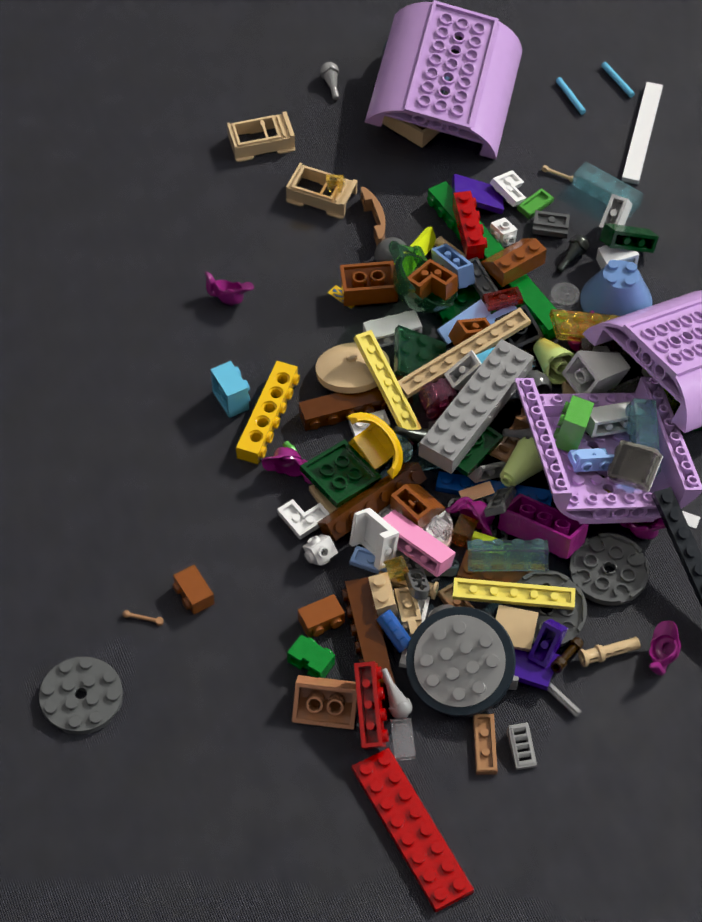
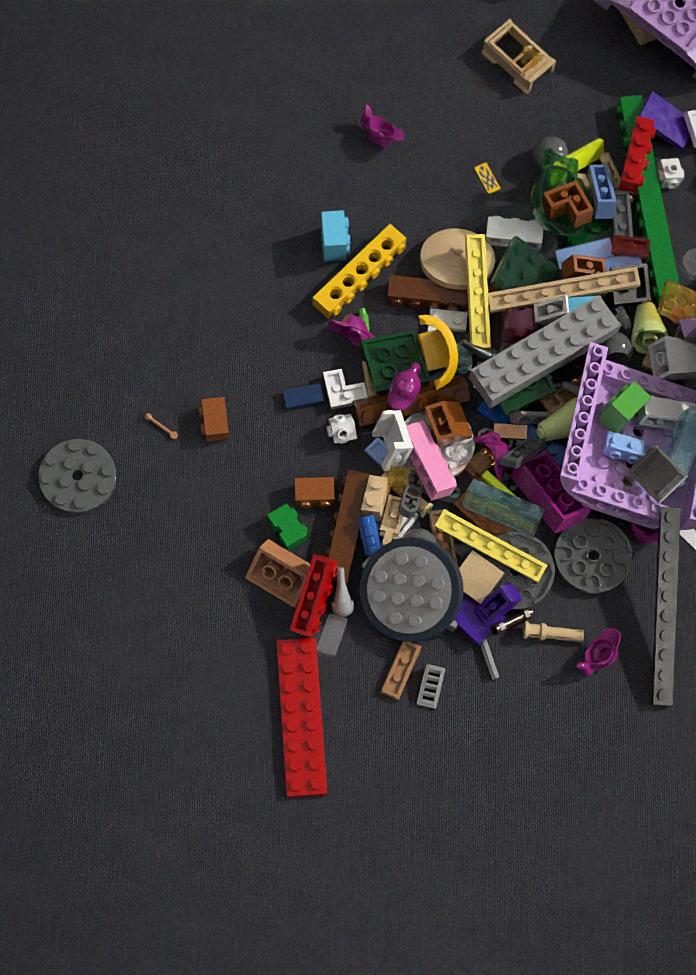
camera: 20 degrees right, 15 degrees up
(267, 538) = (303, 396): none -> dark blue tile
(363, 487) = (404, 387): none -> magenta hair
(367, 283) = (511, 175): dark orange slope -> none
(370, 203) = (560, 90): medium nougat slope -> none
(515, 260) = (662, 210): dark orange slope -> none

